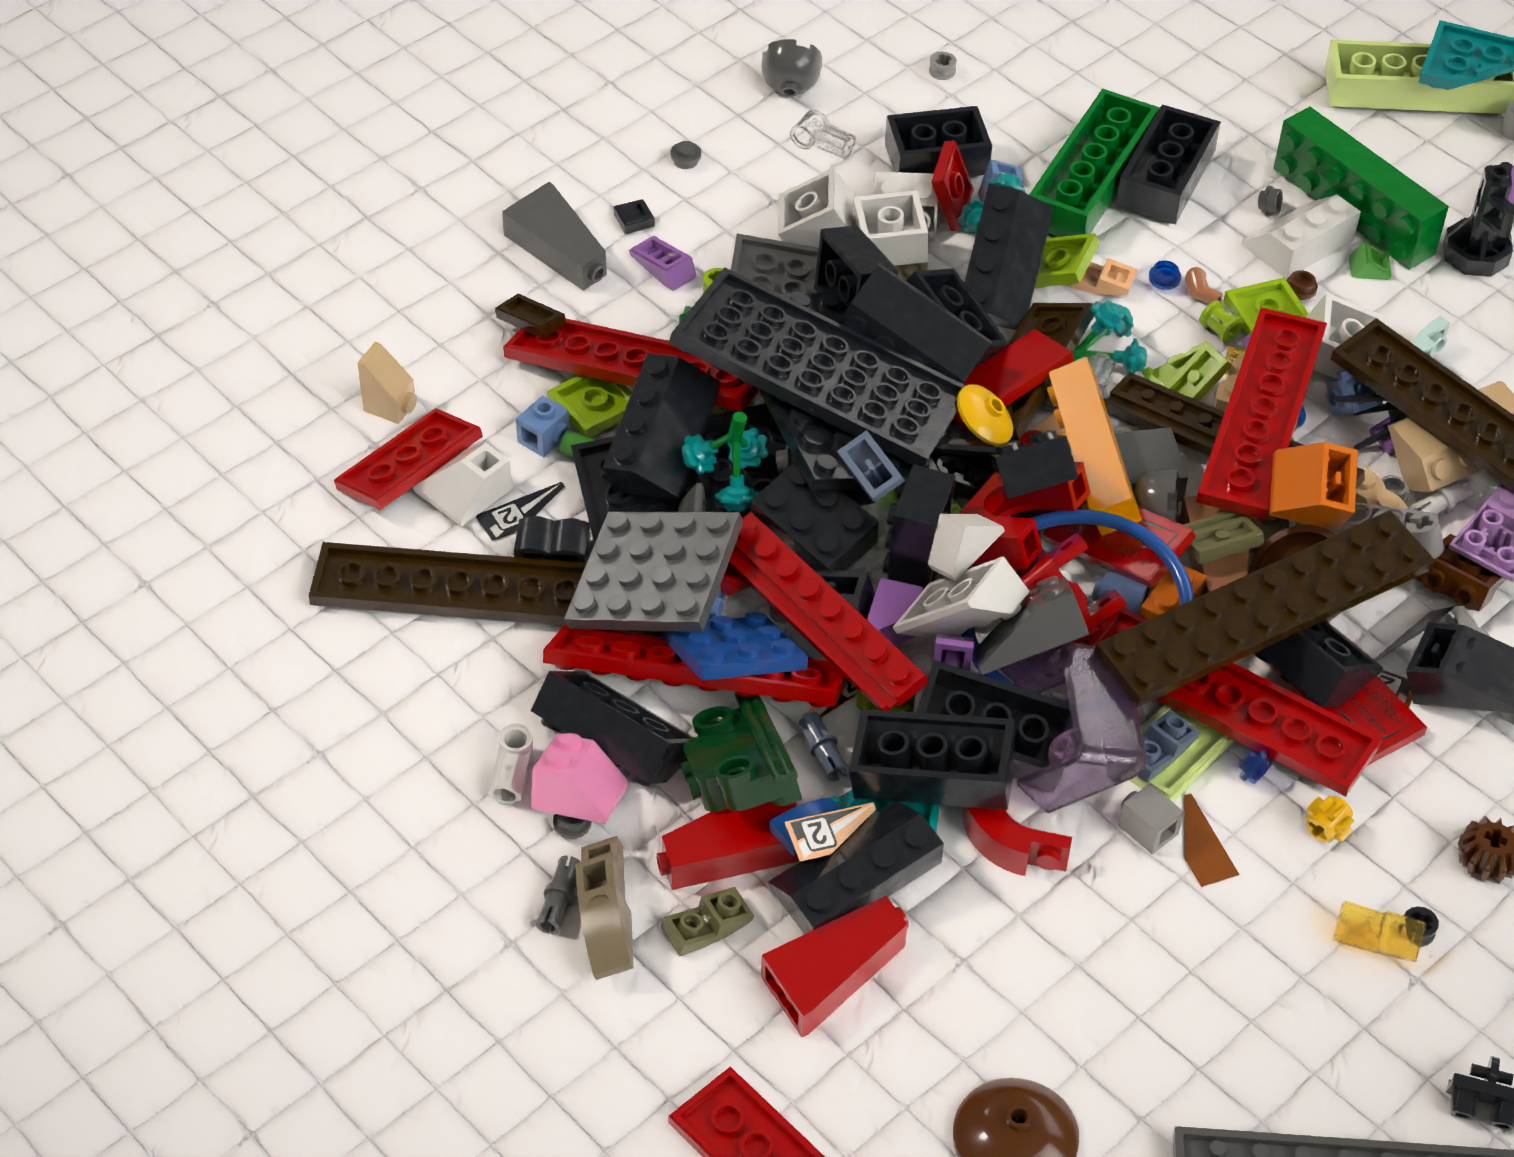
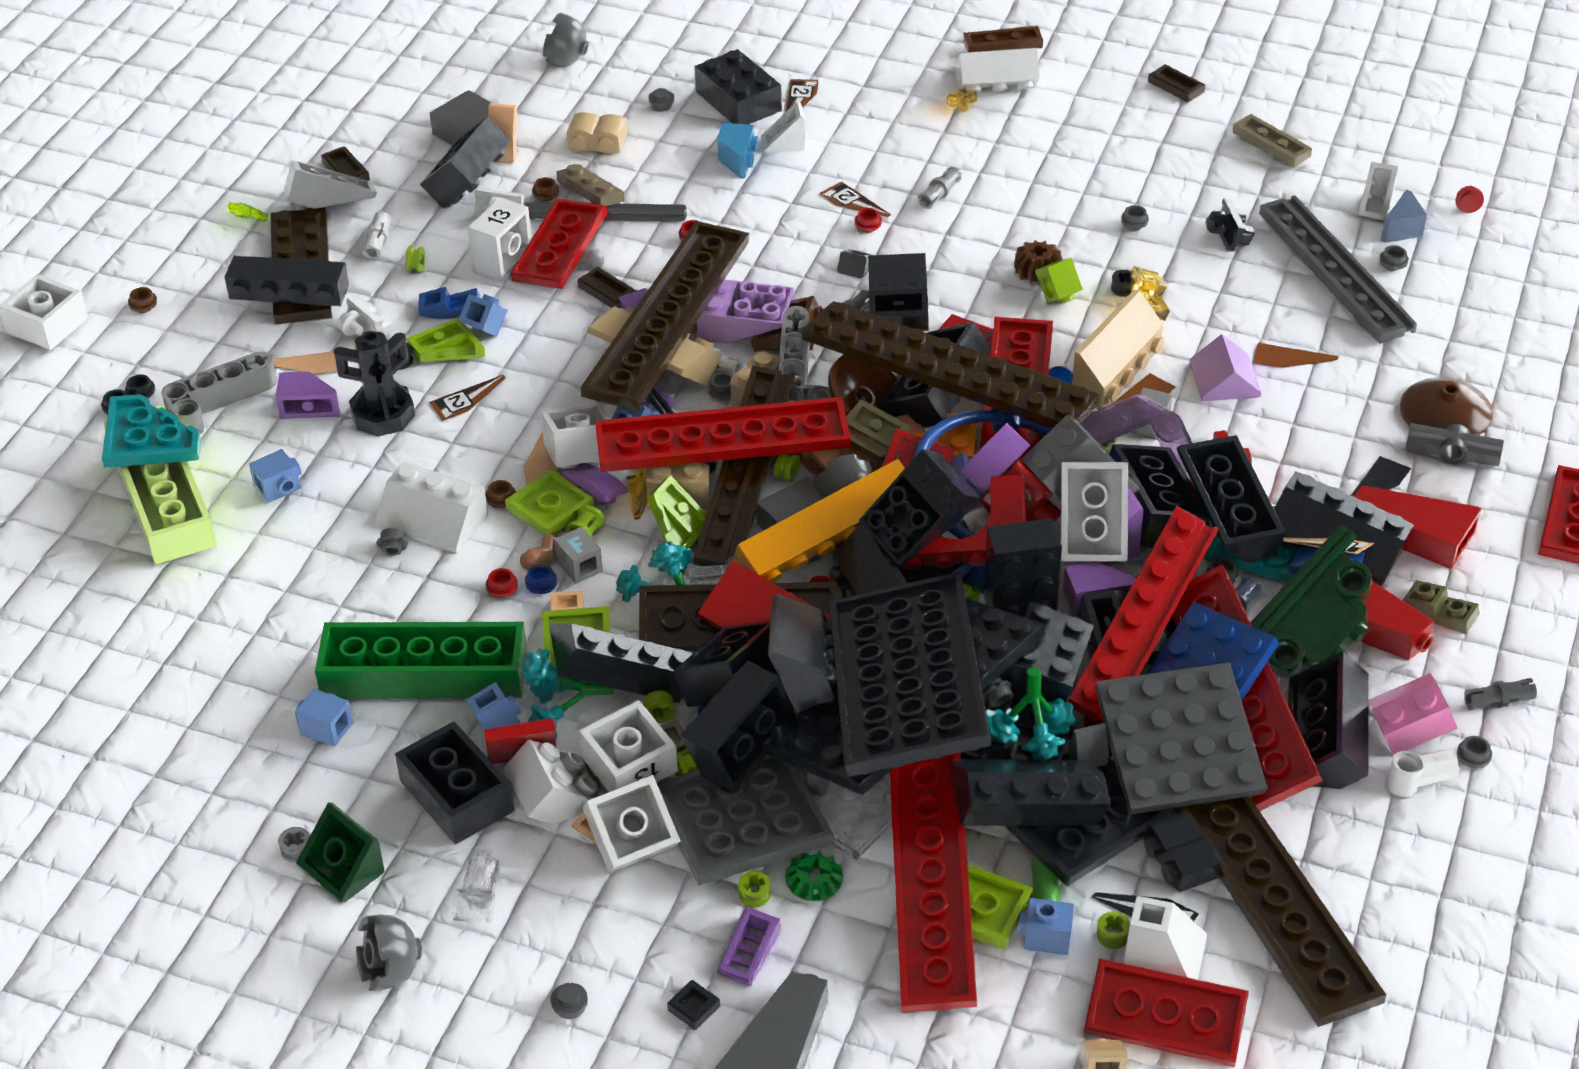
camera: 115 degrees left, 5 degrees down
(505, 826) = (1474, 752): none -> dark grey plate
(522, 476) = (1114, 920): none -> lime bush
(530, 315) = (918, 998): dark brown tile -> none
(603, 908) = (1489, 654): dark tan slope -> none
(870, 466) = (1014, 582): sand blue slope -> none
(911, 82) = (341, 854): none -> dark green slope
(935, 994) = (1384, 475): none -> black sticker
(938, 1085) = (1454, 444): none -> dark grey piece
(960, 542) = (1041, 503): white slope -> none
(984, 414) = (848, 586): yellow dish -> none
(1061, 99) = (323, 717): none -> medium blue brick
(1067, 542) = (995, 457): none -> medium lavender slope
(1168, 164) = (390, 597): black brick -> none
(1175, 250) = (501, 583): none -> red plate
(1180, 302) = (578, 555): none -> light grey brick
(1191, 940) = (1224, 372): none -> lavender slope
(1200, 1028) = (1285, 357): none -> dark orange sticker
(1266, 825) = (1118, 349): none -> slope
(1314, 484) = (806, 368): orange slope -> none
(1329, 819) = (1077, 331): yellow gear -> none
(1330, 162) = (354, 479): green brick -> none
(1369, 263) = (443, 463): bright green slope -> none
(1397, 144) = (275, 475): none -> medium blue brick
(1432, 336) = (531, 403): light aqua slope -> none
(1433, 839) = (1059, 281): none -> lime brick
(1472, 309) = (465, 399): none -> sticker

